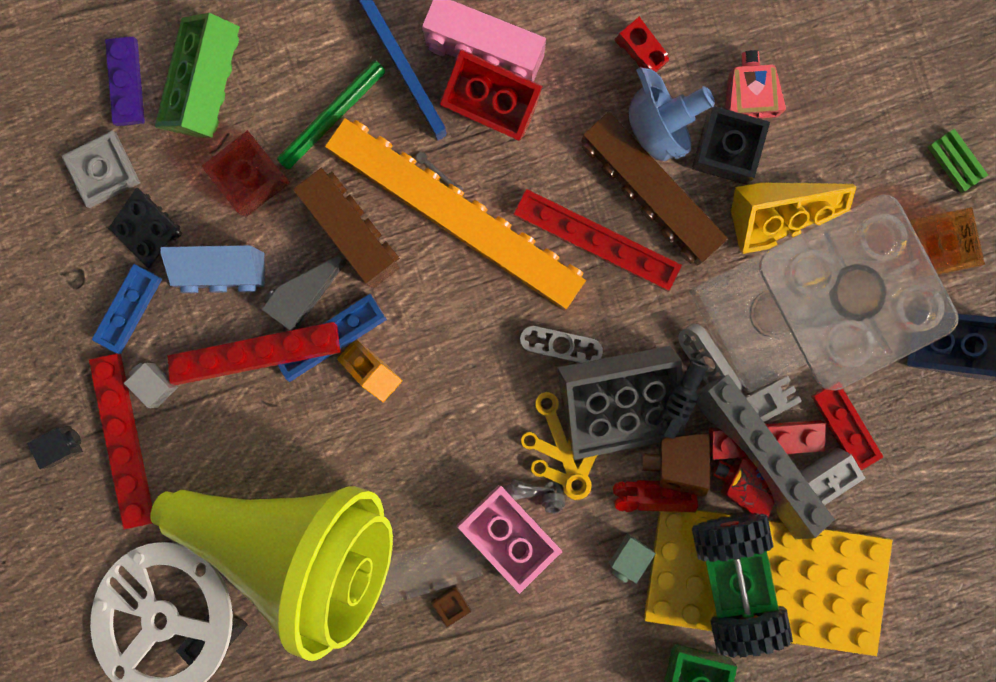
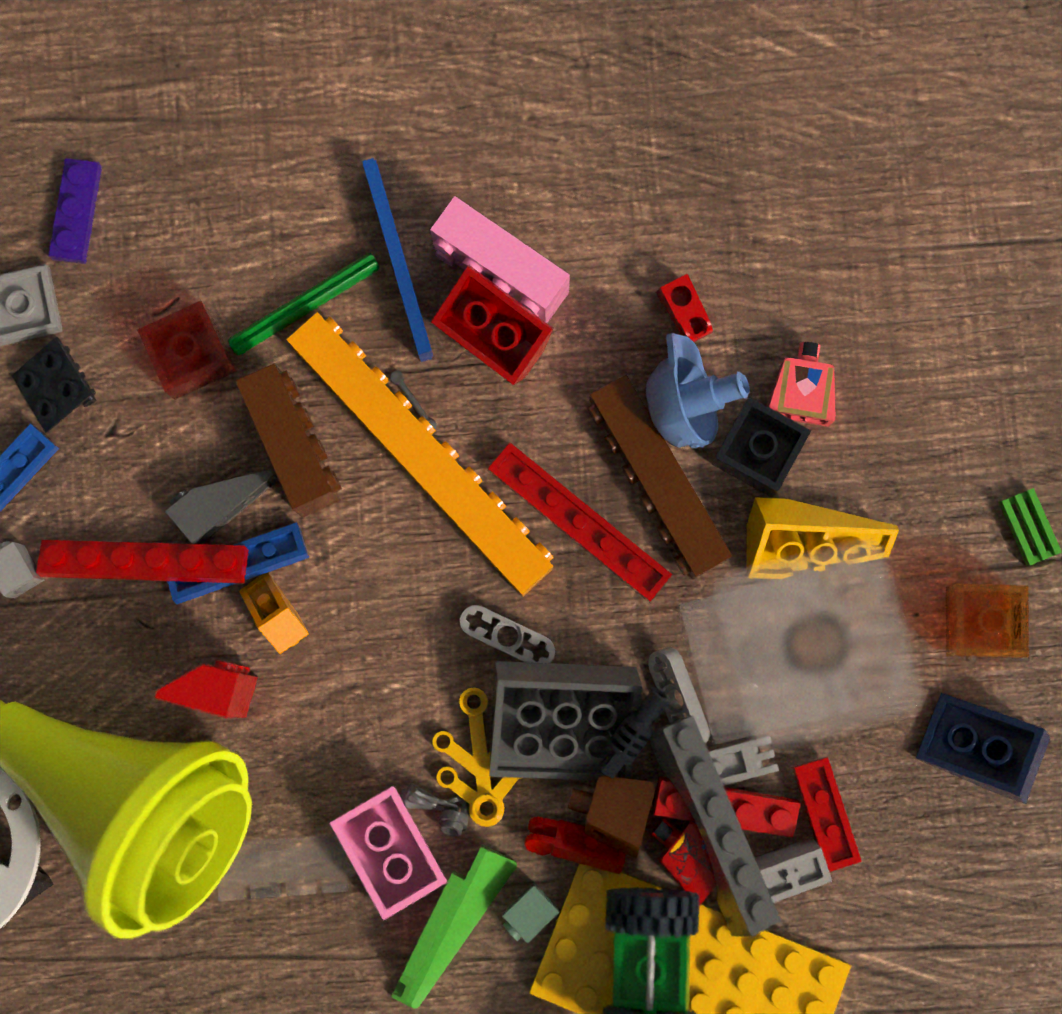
camera: 10 degrees right, 5 degrees down
(198, 75) = (160, 224): bright green slope -> none
(214, 268) = (123, 450): medium blue slope -> none
(337, 444) = (215, 689): none -> red slope
(451, 606) = (301, 920): reddish brown tile -> none
(570, 580) = (451, 923): none -> bright green wedge

